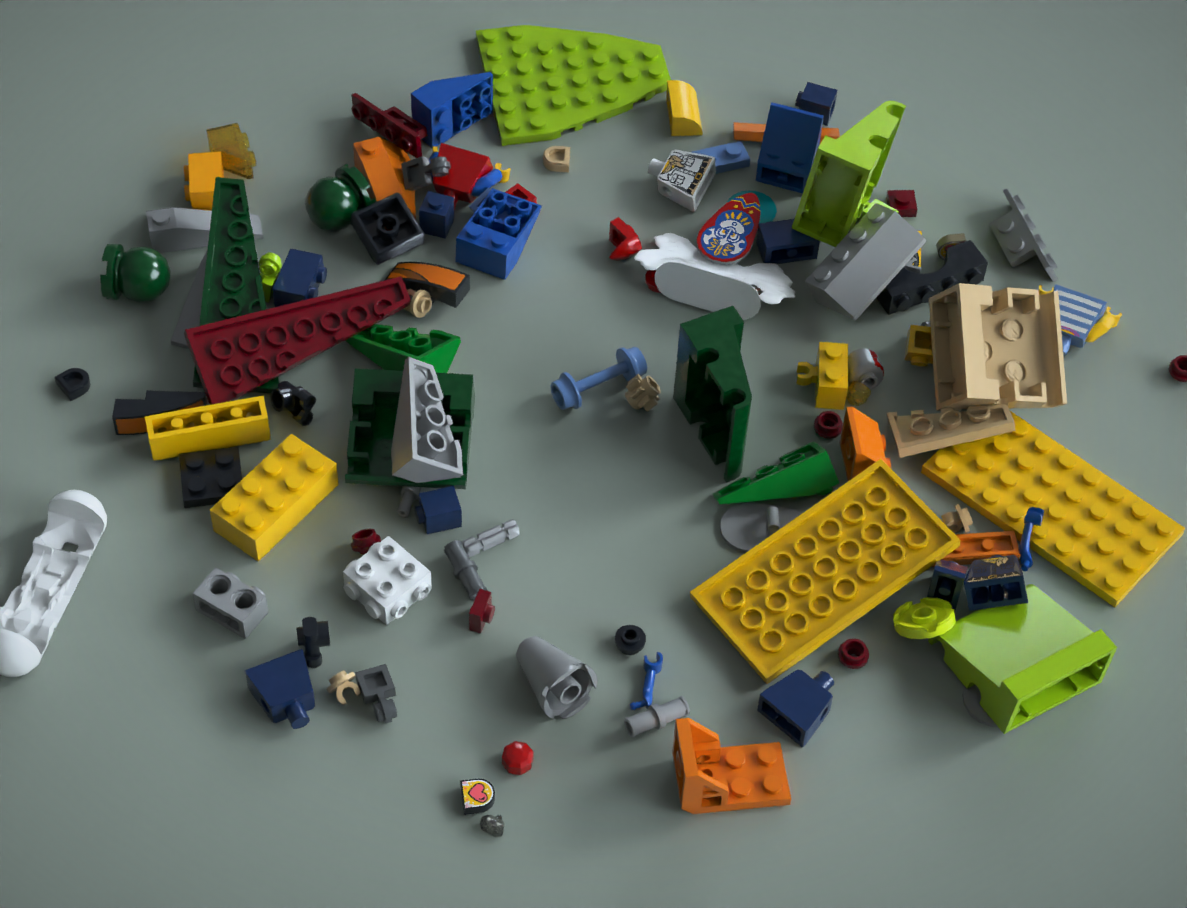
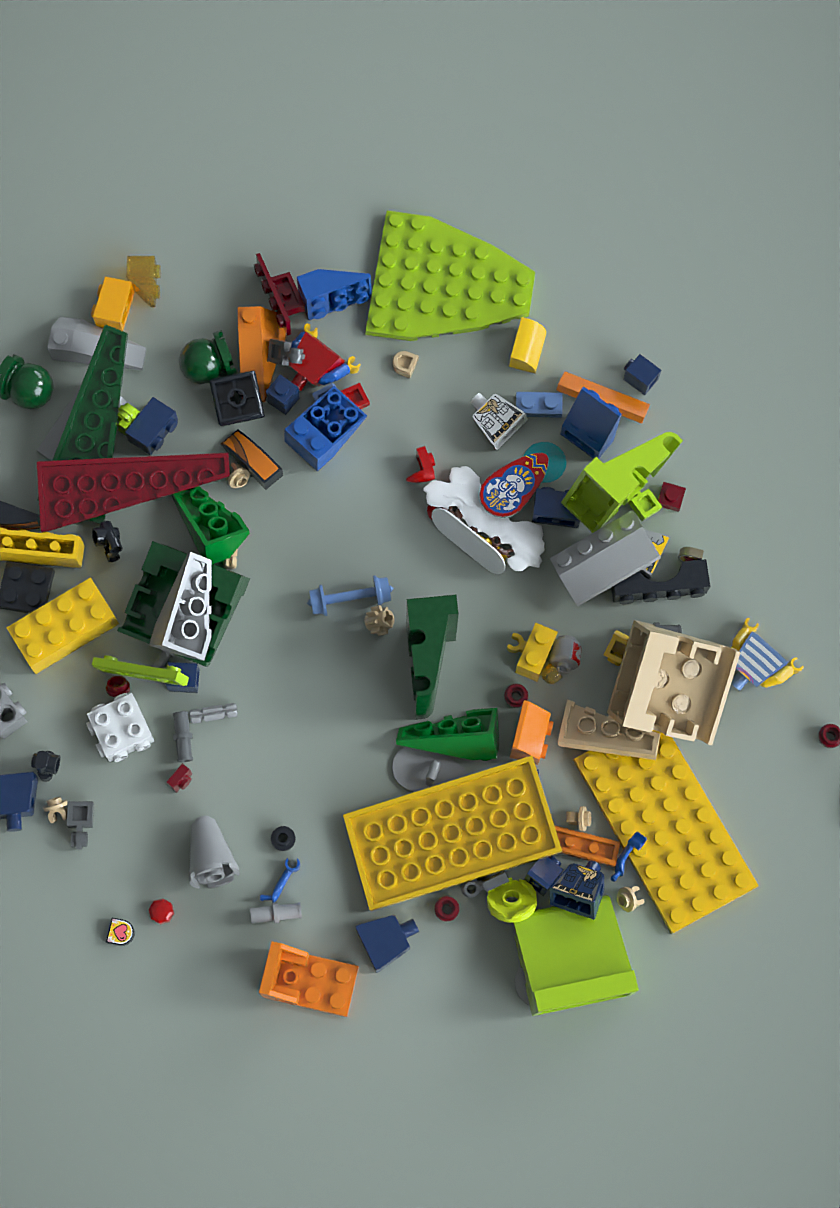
camera: 20 degrees right, 20 degrees up
(390, 509) = (111, 665): none -> lime plate
(492, 825) = (123, 960): clear smoke rock -> none
(885, 611) = (487, 882): none -> dark grey plate
(1017, 238) = (753, 563): light grey bracket -> none
(1051, 581) = (627, 899): none -> tan plate

